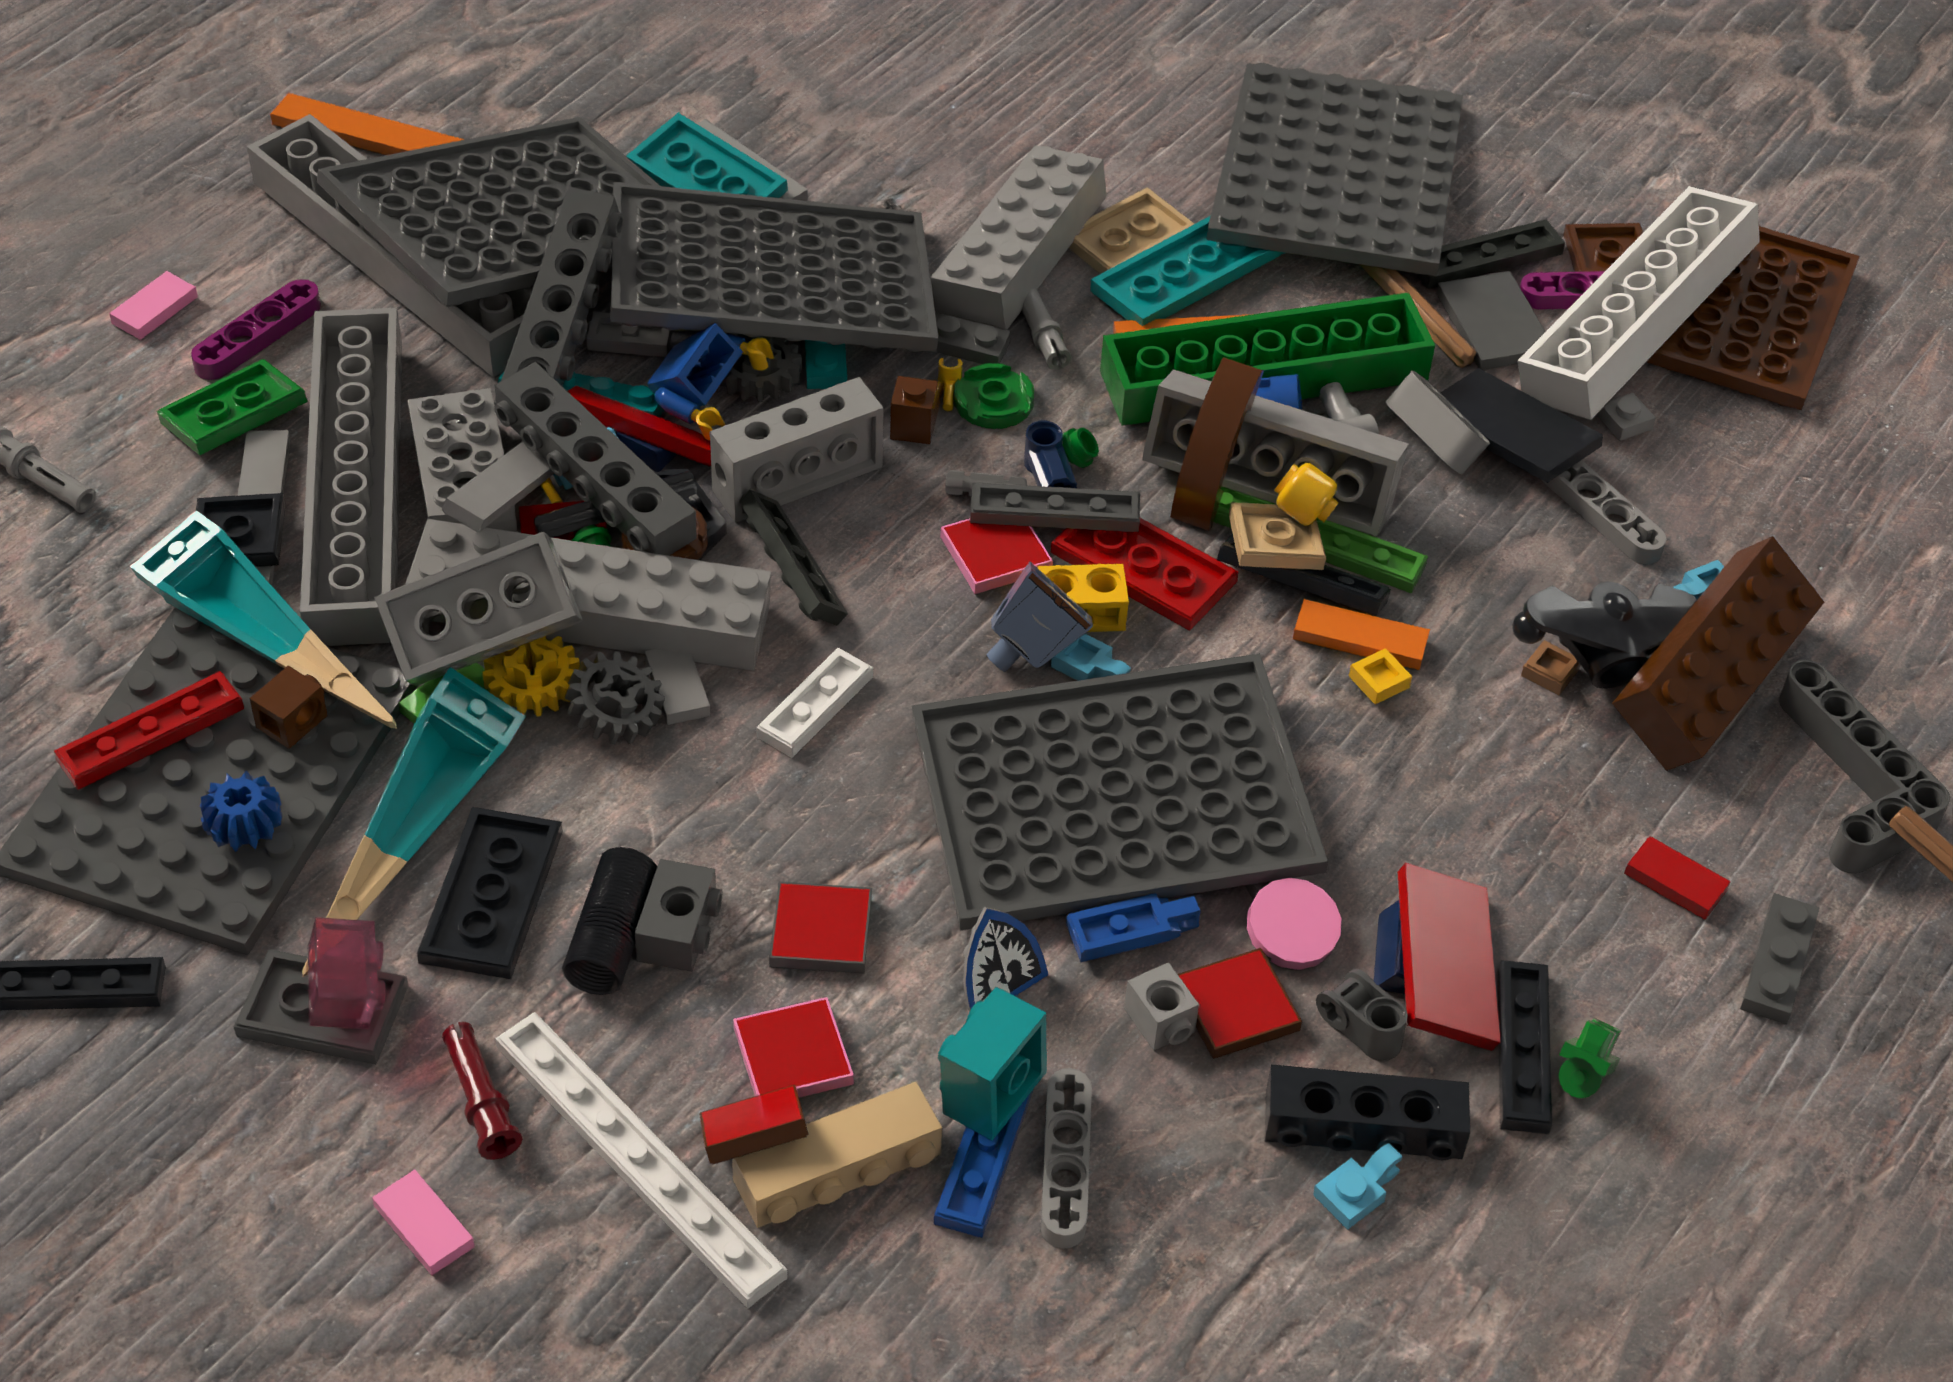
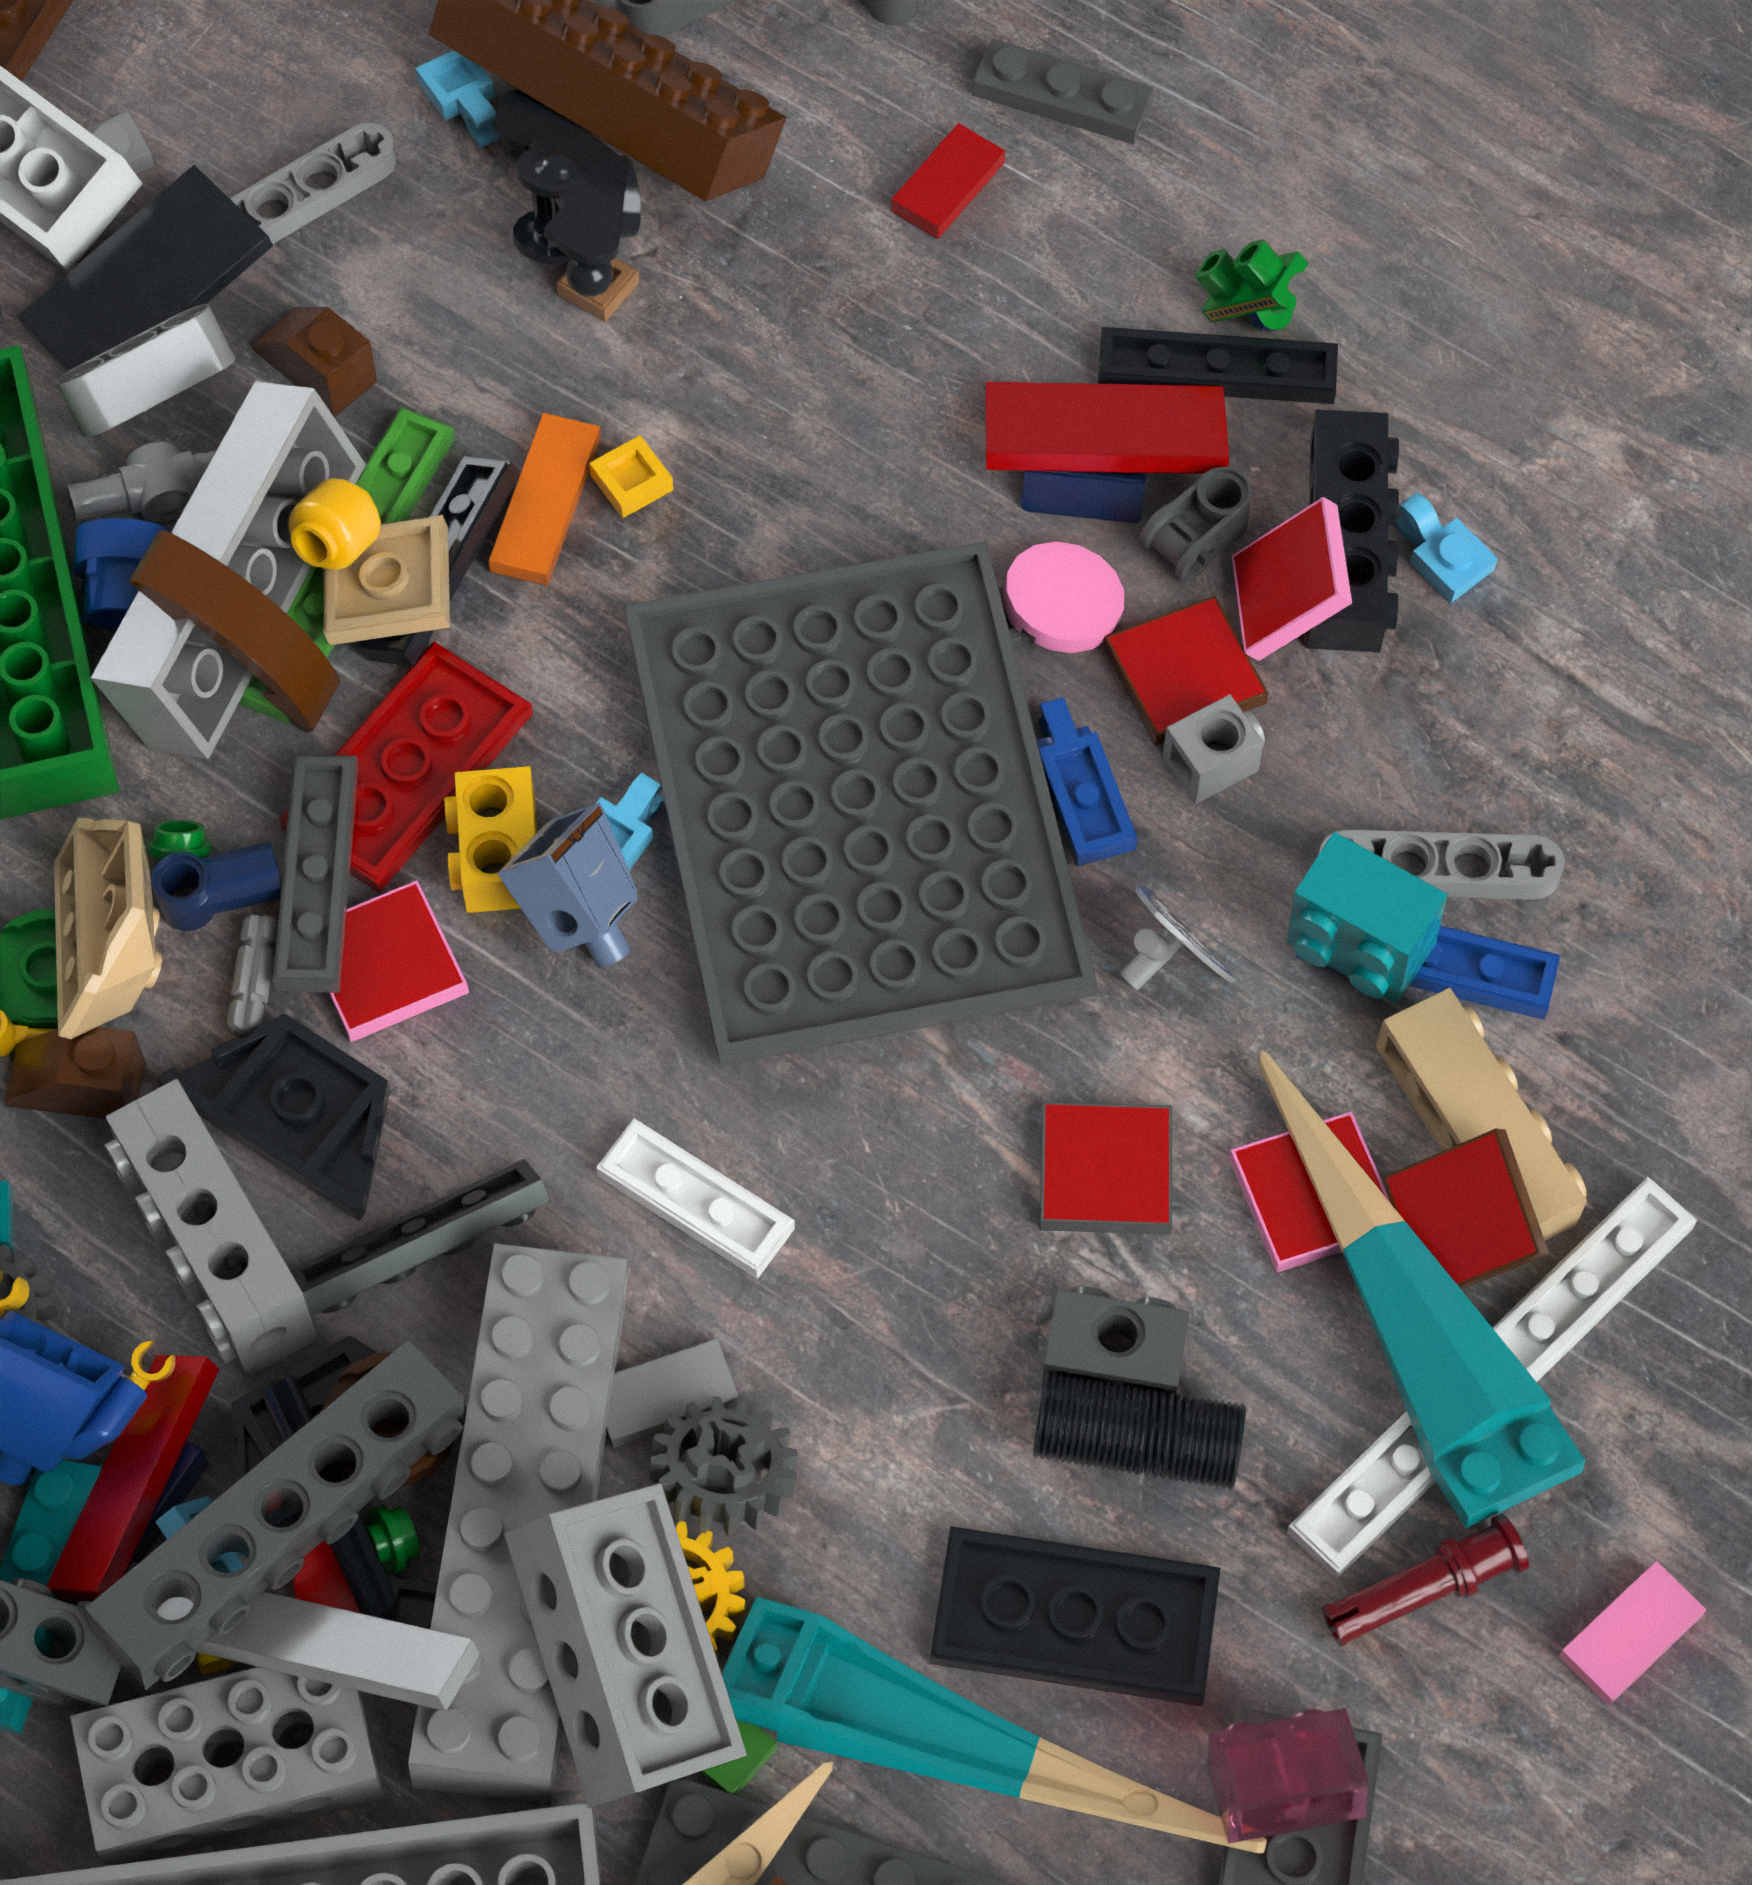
camera: 90 degrees left, 15 degrees up
(621, 1114) = (1465, 1392): none -> teal plate
(888, 503) = (295, 1107): none -> black wing
(996, 395) = (103, 924): none -> tan wedge
(1307, 1055) = (1291, 579): none -> red tile
(1460, 513) = (321, 353): none -> reddish brown slope

